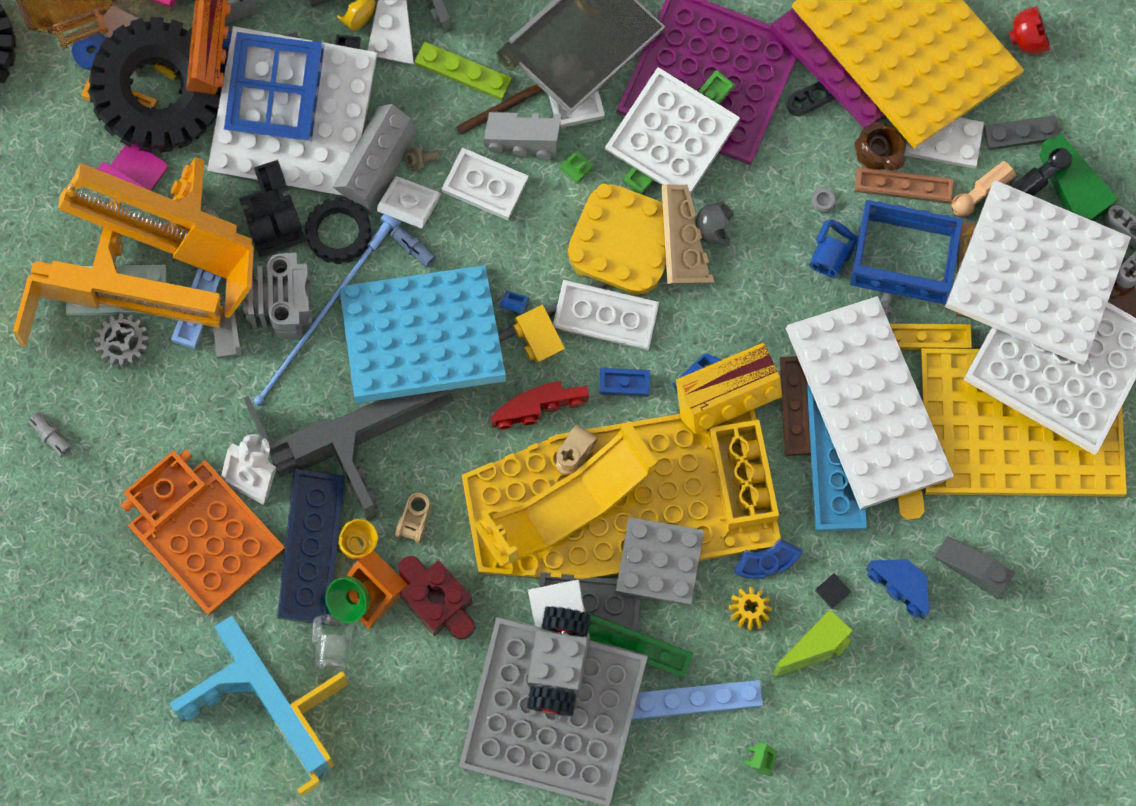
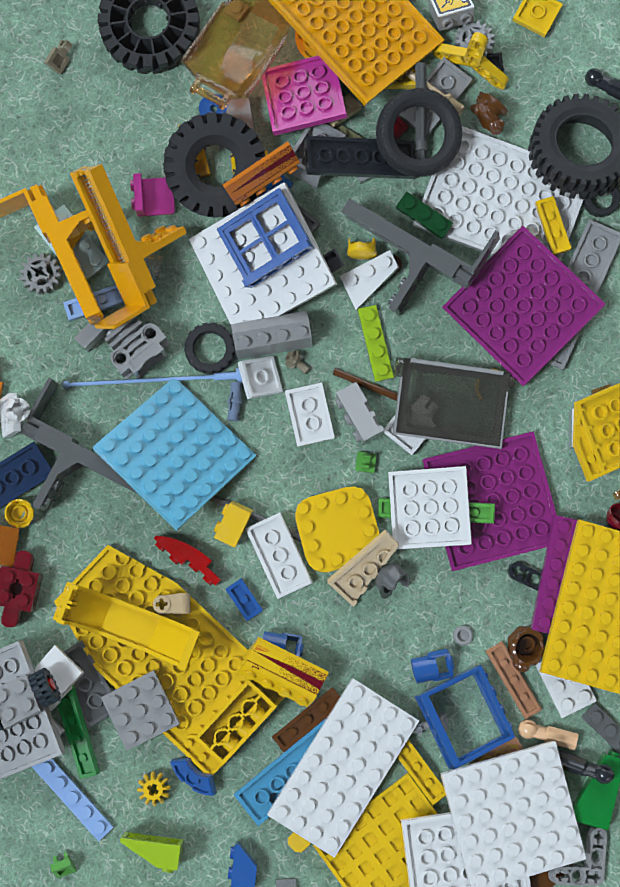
camera: 55 degrees right, 10 degrees up
(270, 214) = (187, 299): black plate -> none
(413, 523) = (56, 538): tan piece -> none
(515, 302) = (244, 492): blue tile -> none
(833, 591) = (205, 831): black tile -> none

